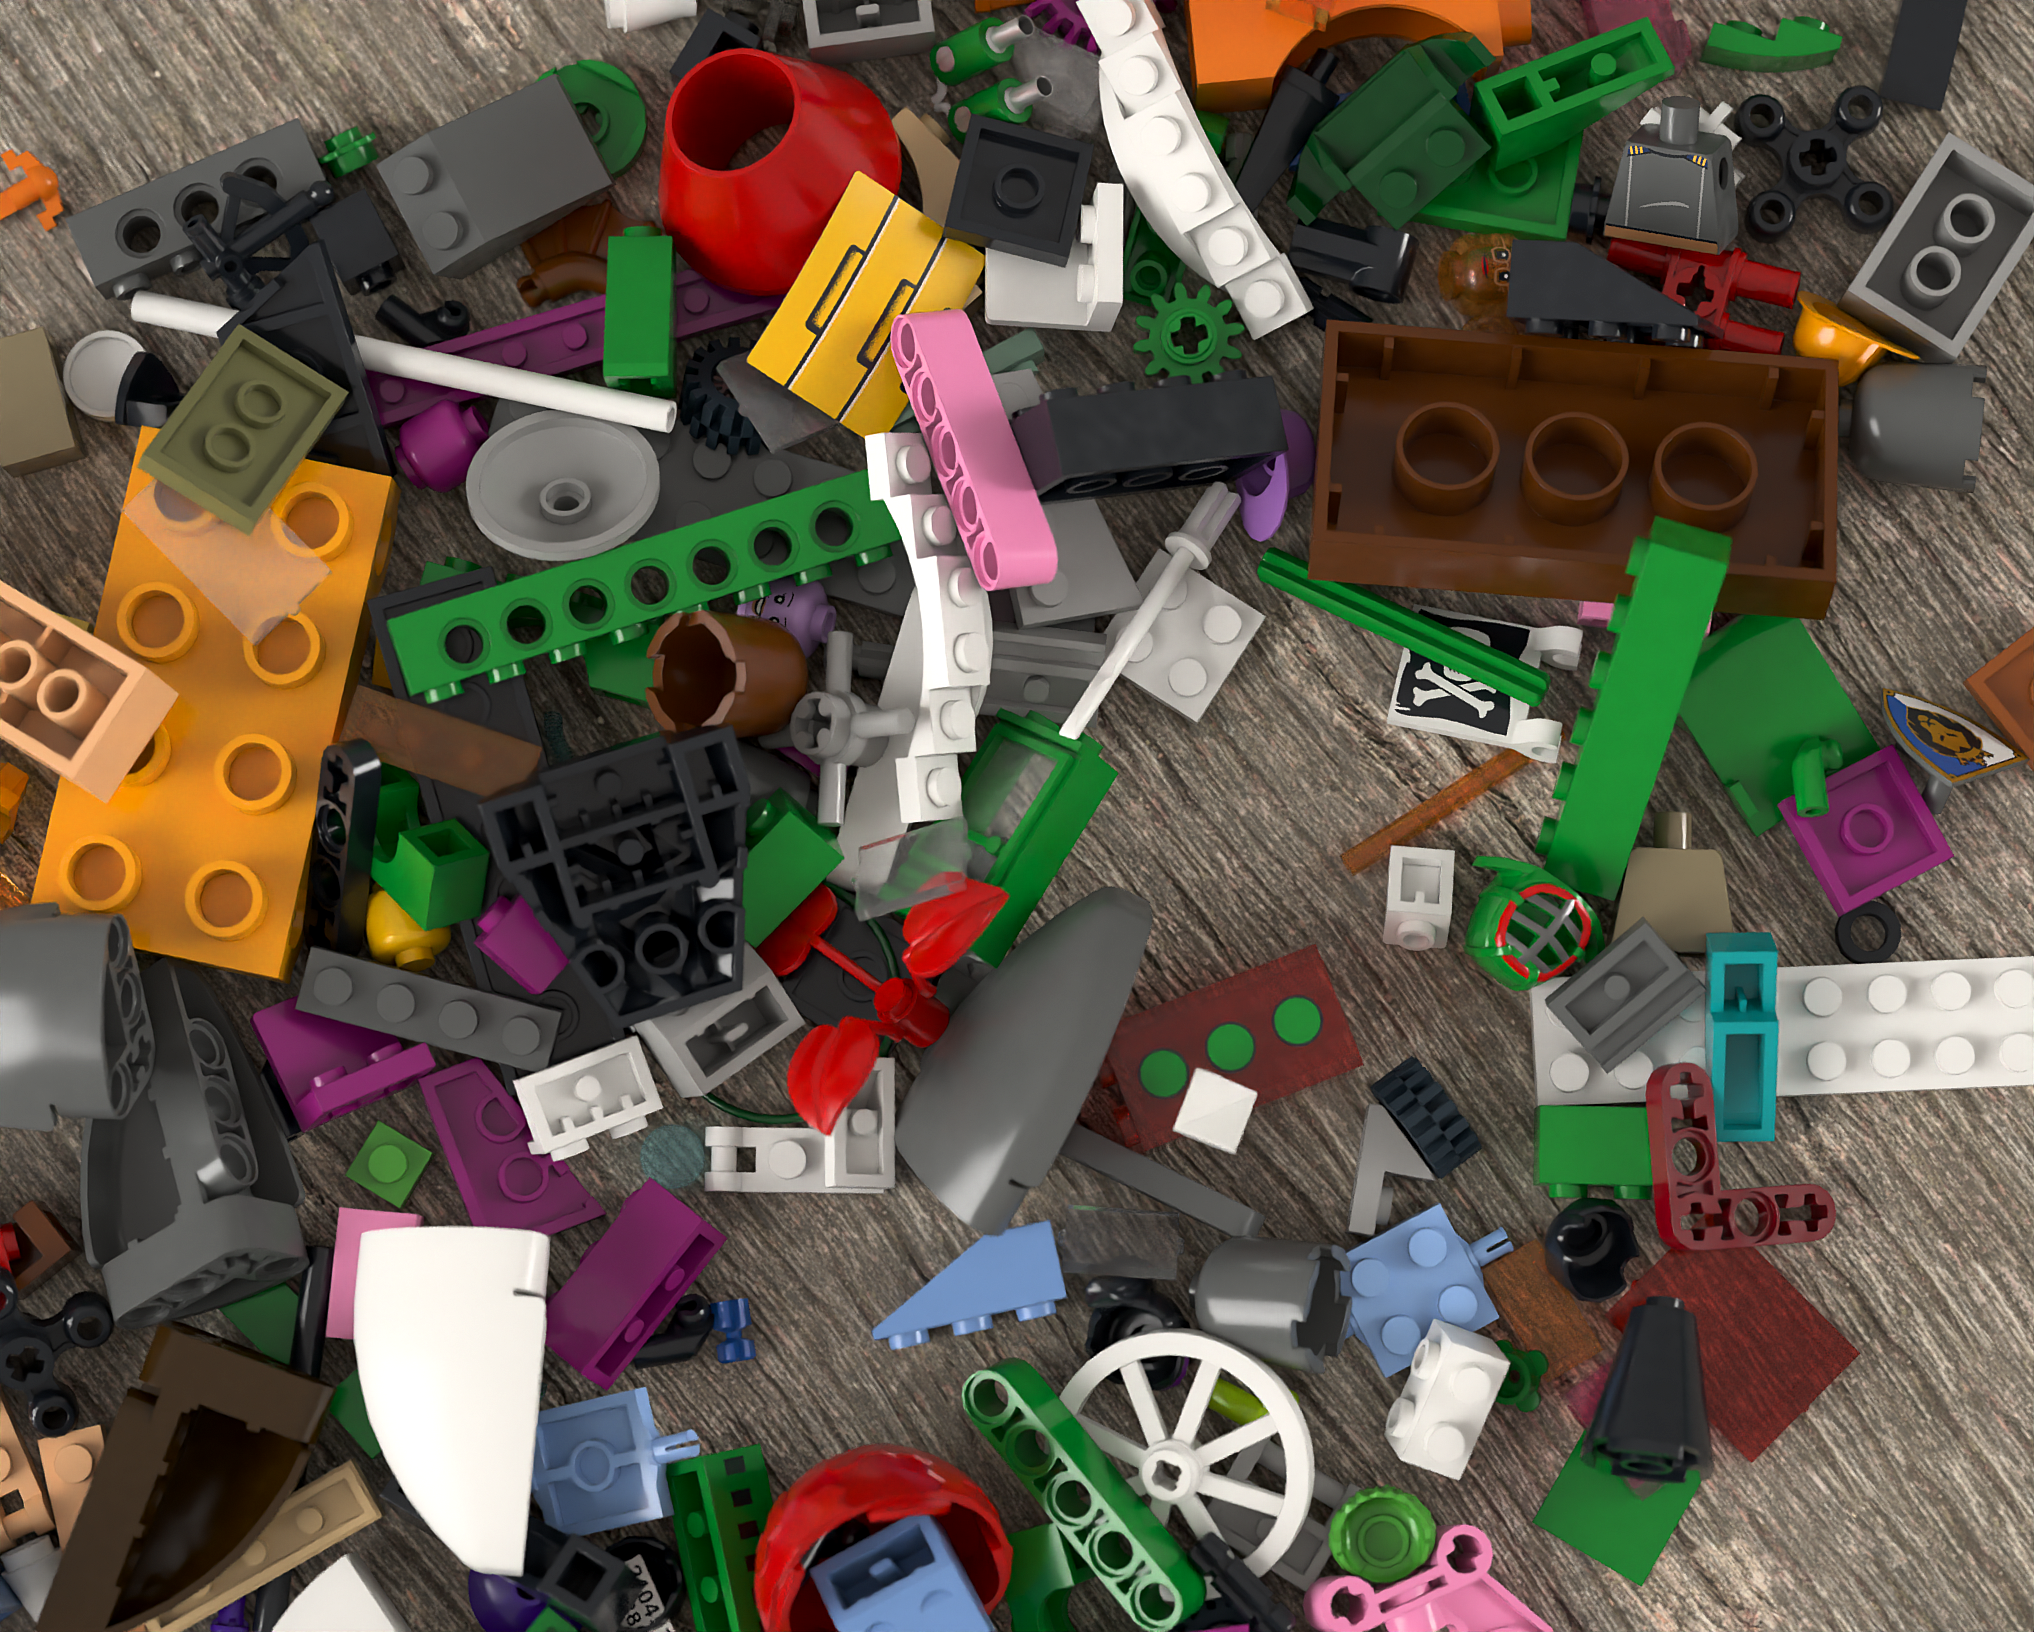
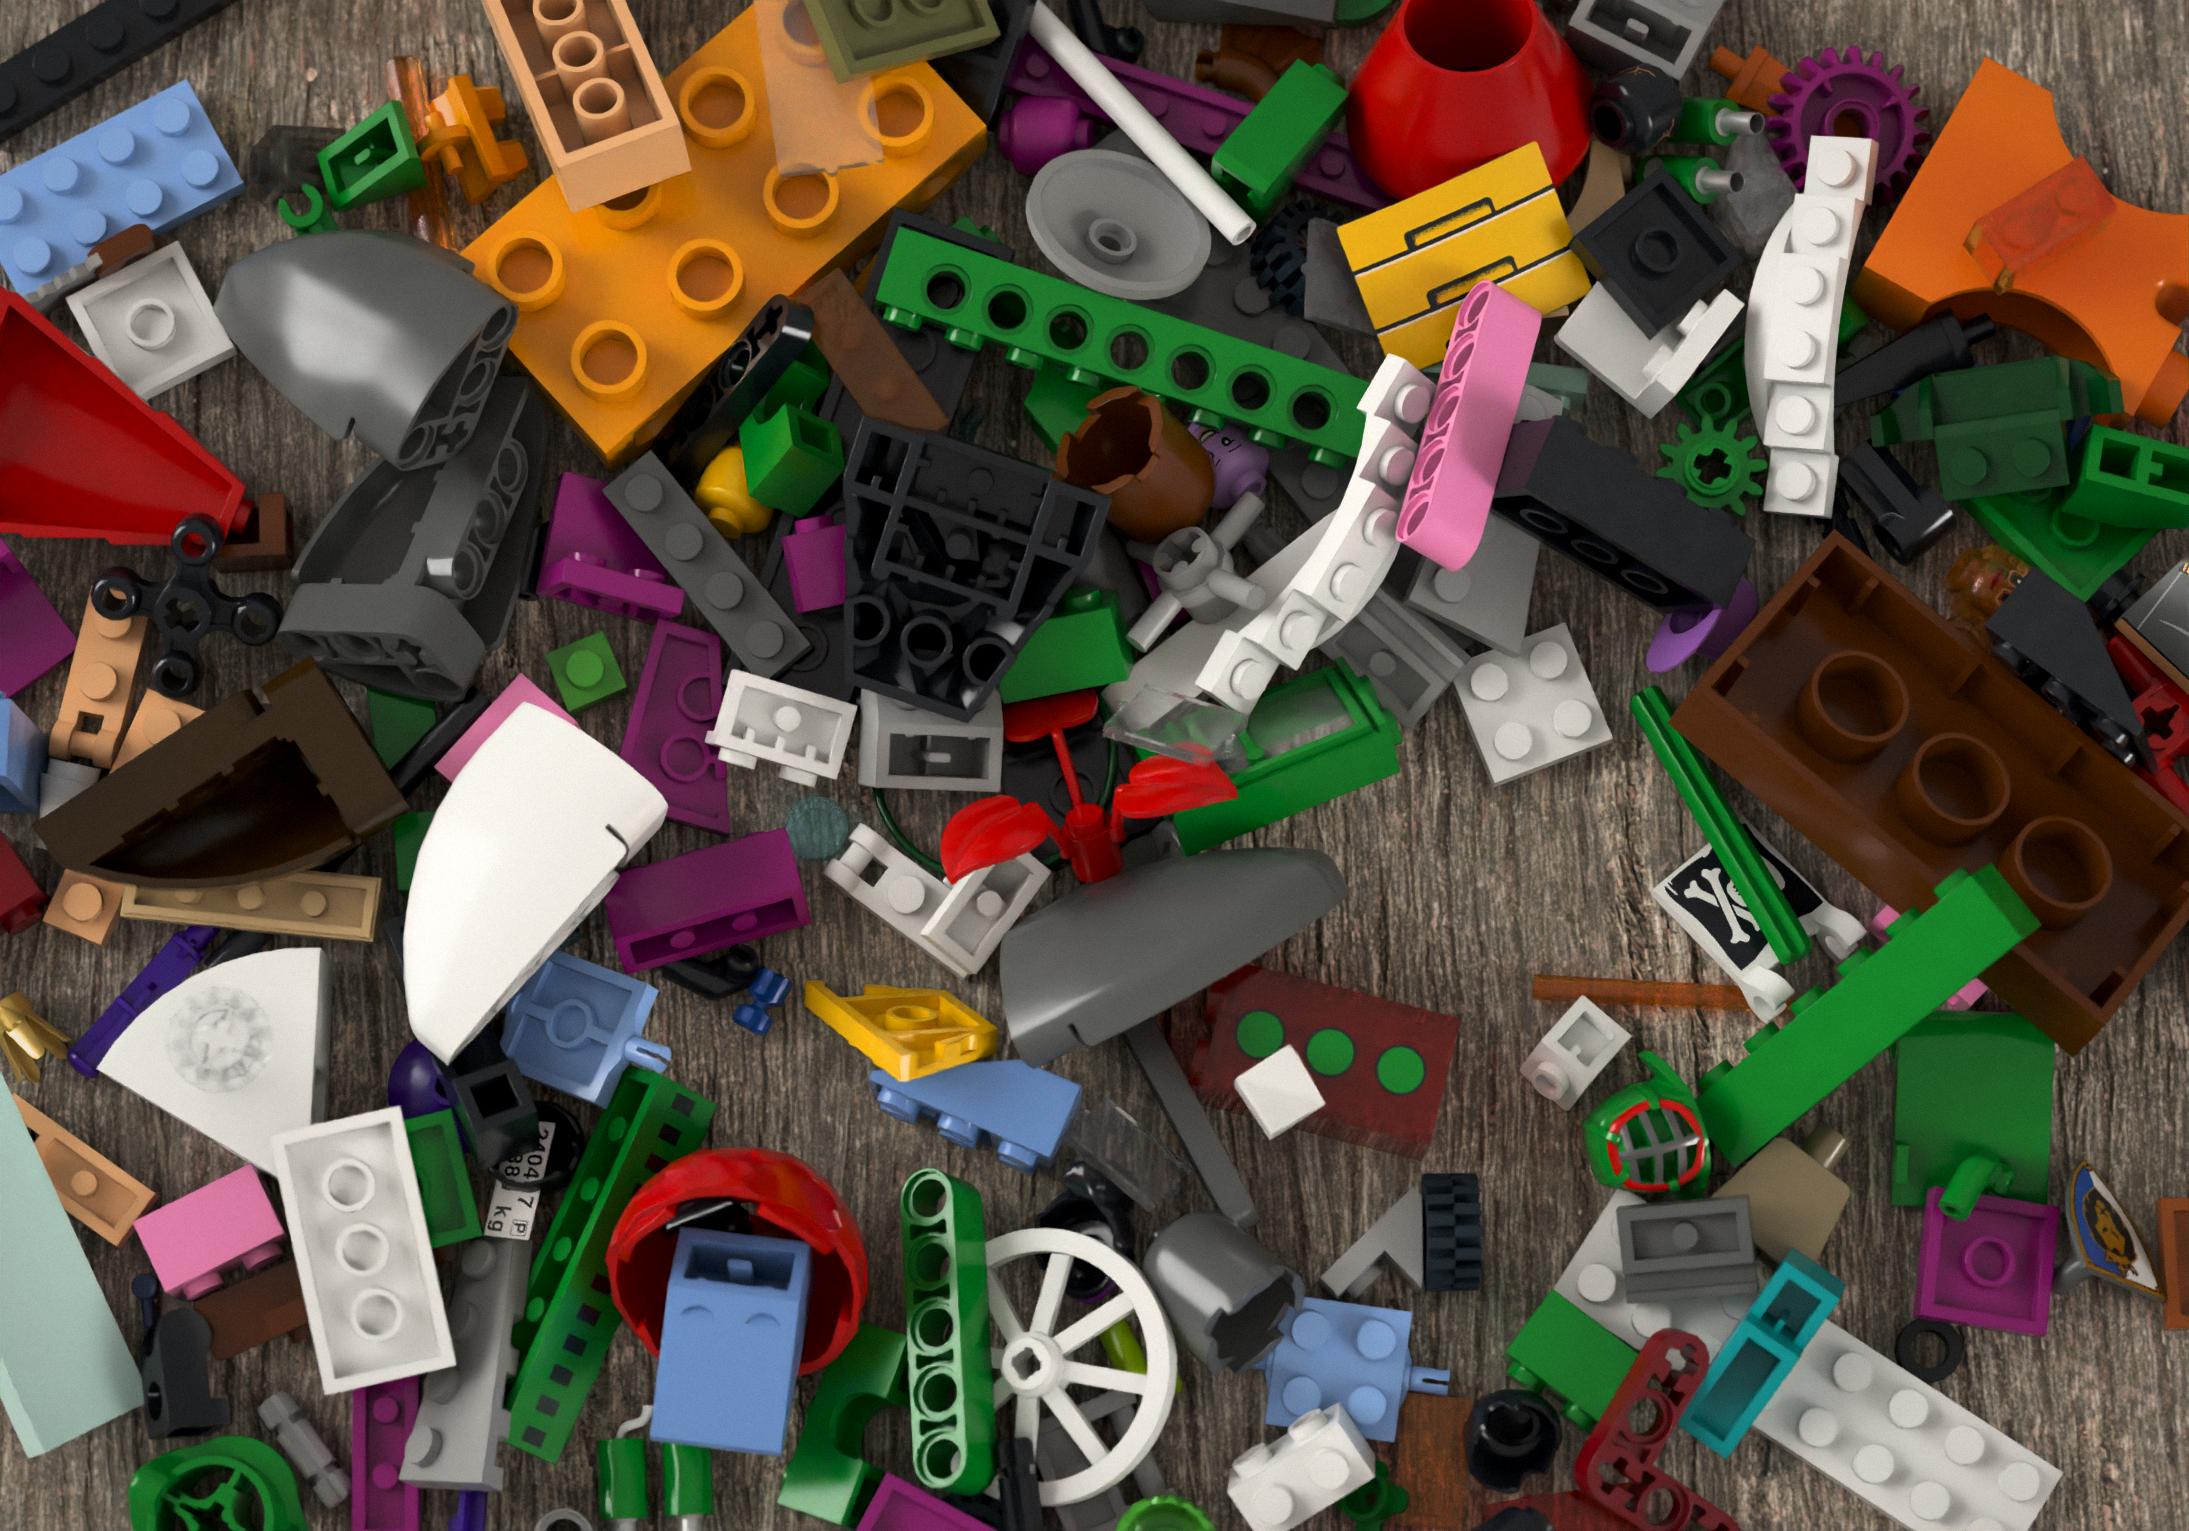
camera: 30 degrees right, 5 degrees down
(870, 1273) = (905, 1028): none -> yellow wing
(916, 81) = (1636, 109): none -> black head
(1189, 549) = (1588, 637): white piece -> none

